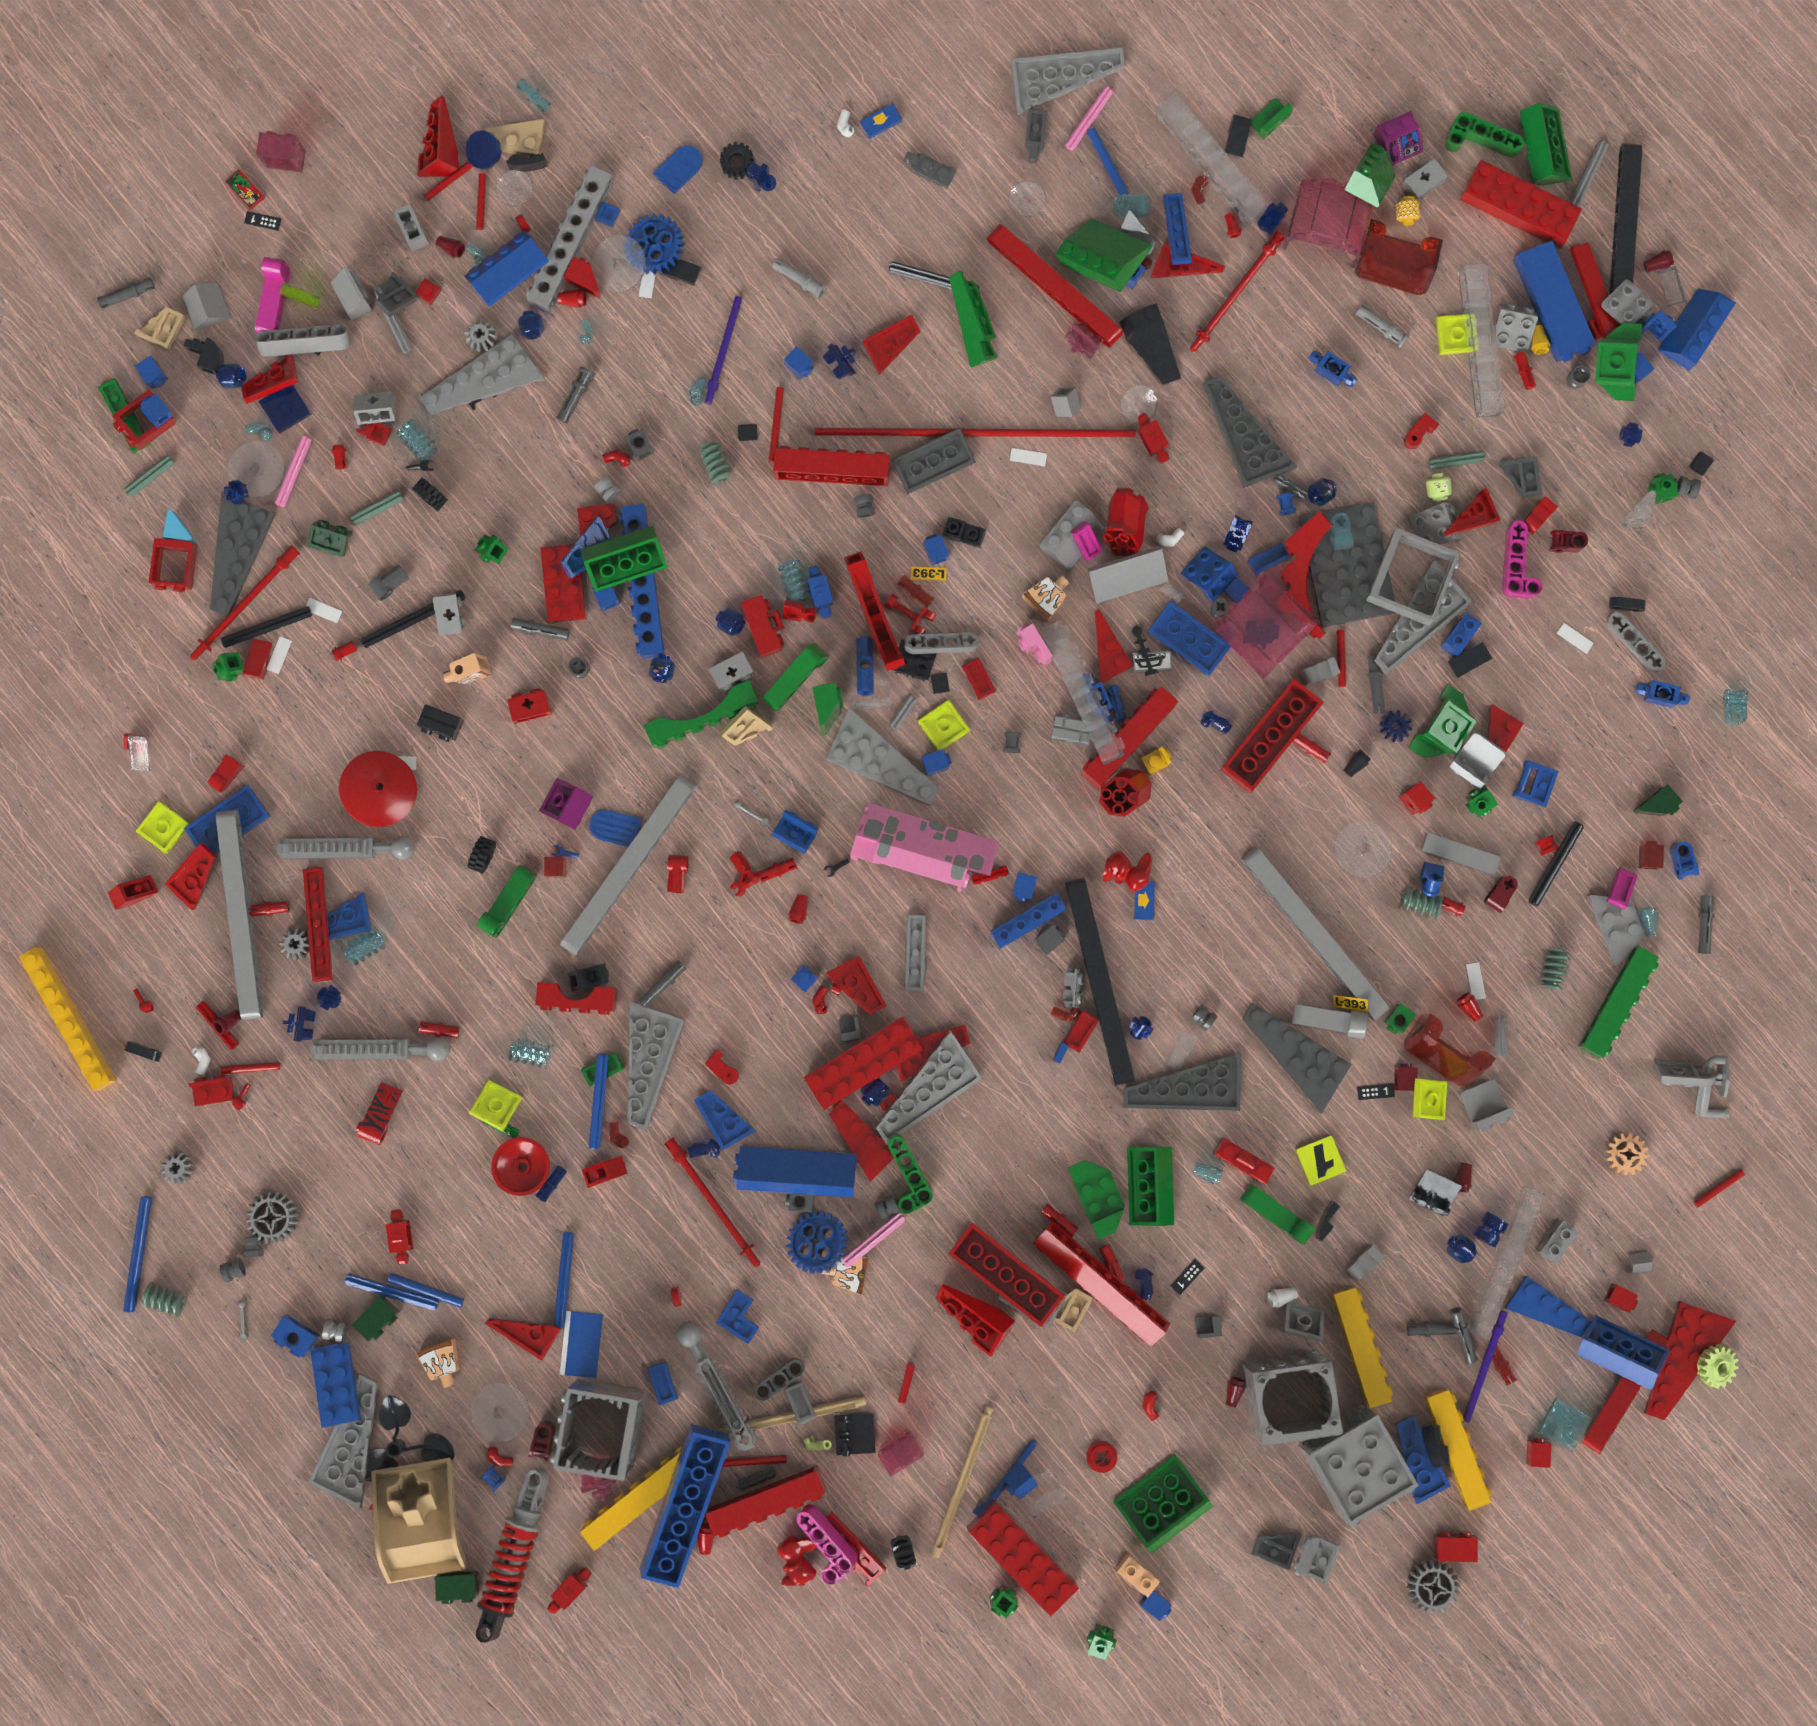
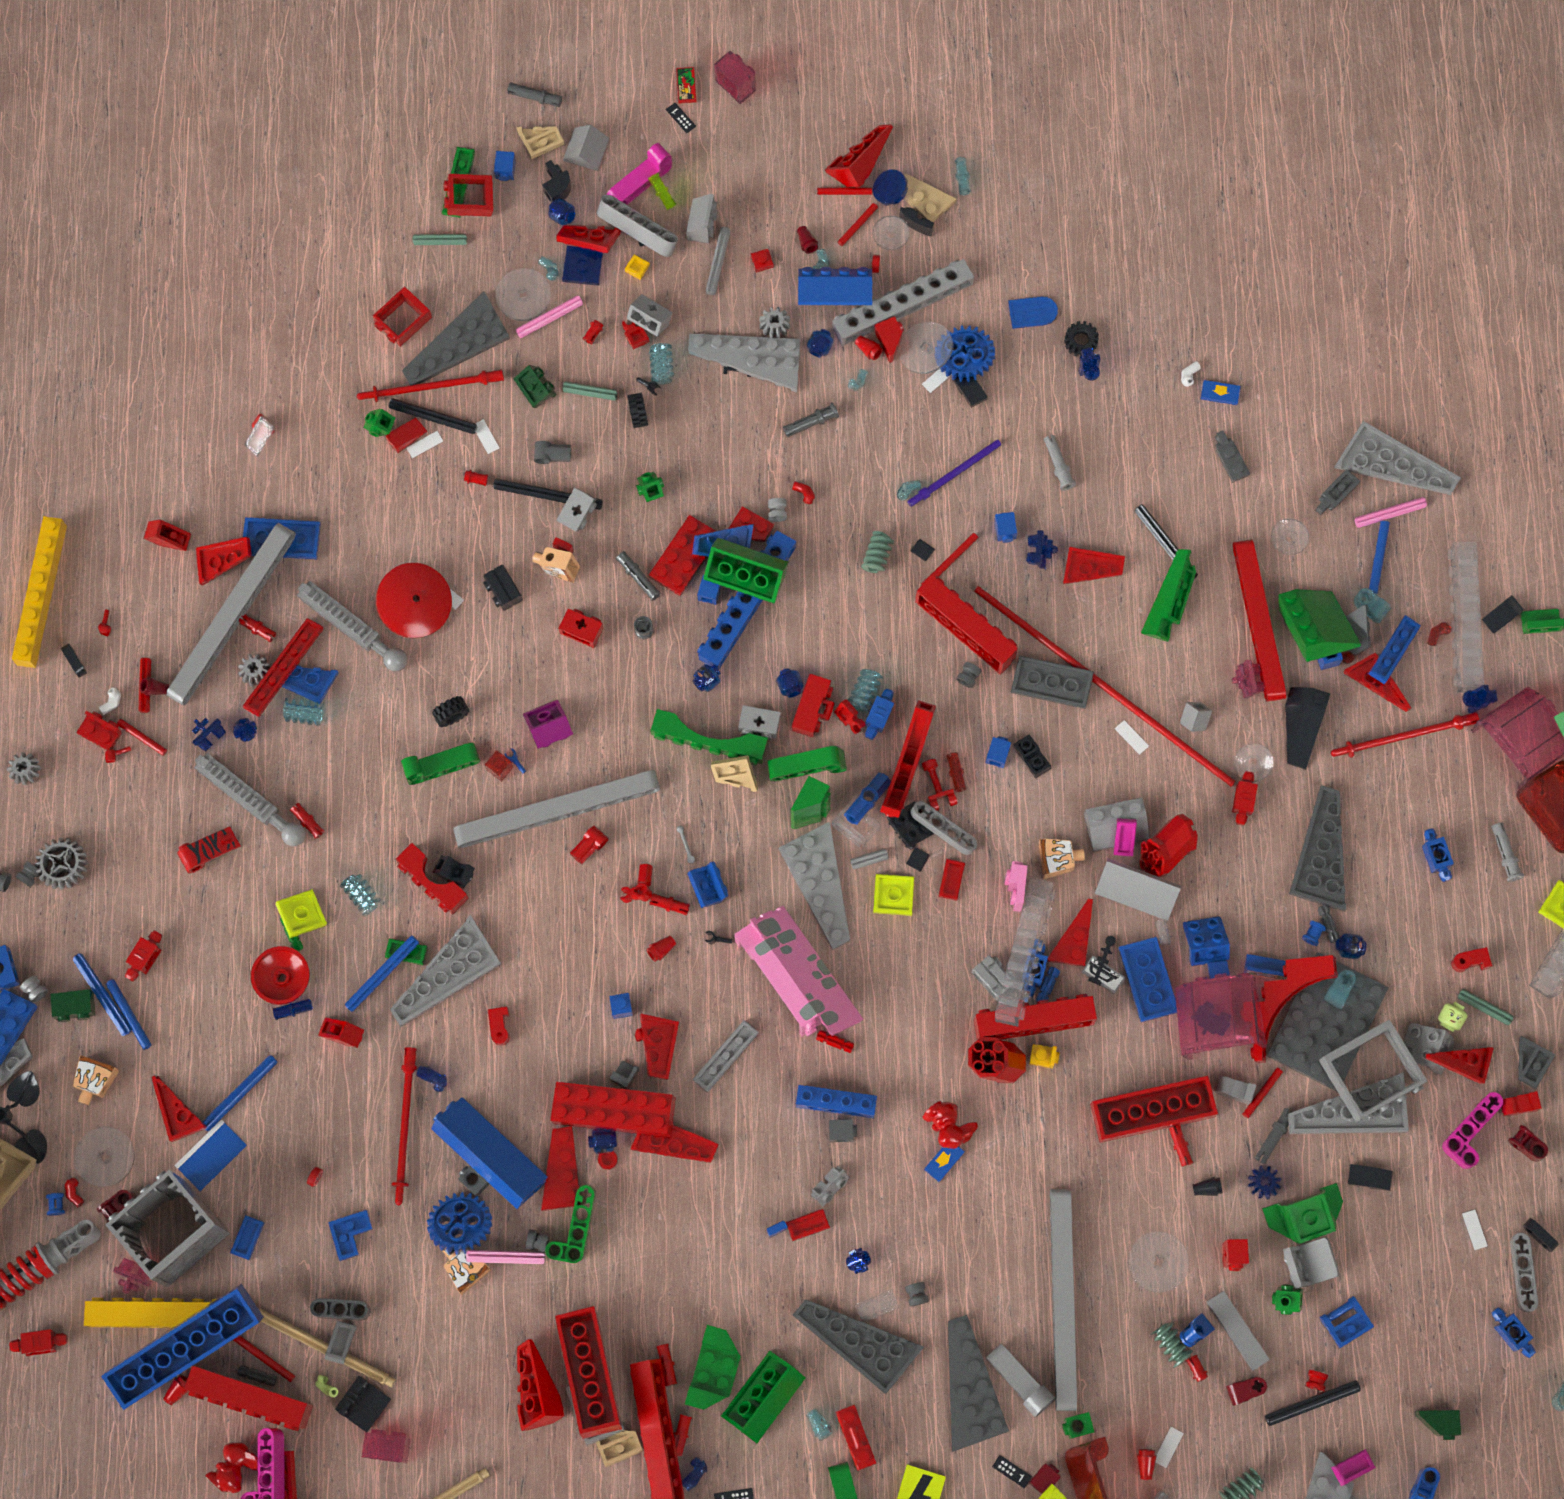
camera: 40 degrees right, 10 degrees down
(155, 410) = (483, 193): blue brick -> none
(162, 827) = (230, 505): neon yellow tile -> none
(175, 528) = (427, 292): medium azure slope -> none
(225, 773) = (310, 501): red leg -> none
(236, 491) = (493, 298): clear blue gear -> none
(330, 374) = (637, 267): none -> yellow tile
(395, 296) = (734, 245): dark grey wing -> none
(411, 227) = (787, 204): light grey brick -> none
(460, 652) = (562, 545): none -> red plate
(607, 214) = (947, 305): blue tile -> none
(615, 827) = (570, 771): blue window -> none
(616, 1137) = (372, 1013): clear red arm -> none
(639, 452) = (829, 502): dark grey brick -> none
(667, 979) = (506, 921): dark grey pin -> none
(689, 1336) = (298, 1216): light grey gear -> none
(722, 1120) = (465, 1066): blue wing -> none
(818, 1000) = (618, 1032): red arm -> none
(906, 1382) = (437, 1395): red tile -> none
(928, 573) = (978, 766): yellow sticker -> none
(936, 762) = (864, 918): blue brick -> none
(937, 1082) = (660, 1172): light grey wing -> none
(1012, 742) = (937, 950): dark grey bush -> none
(1024, 887) = (854, 1072): blue brick -> none
(1064, 1015) = (805, 1202): clear red arm -> none
(1099, 981) = (854, 1197): black beam -> none
(1169, 540) = (1194, 889): white arm -> none
(1216, 721) = (1118, 1063): clear blue arm -> none
(1221, 613) = (1196, 970): dark grey bush -> none
(1232, 224) = (1443, 681): red pin -> none
(1237, 534) = (1253, 925): clear blue hips -> none
(1350, 1003) = (1047, 1379): yellow sticker -> none
(1460, 634) = (1378, 1150): blue brick -> none
(1502, 728) = (1354, 1255): red wing -> none
(1651, 855) = (1399, 1460): clear red brick -> none

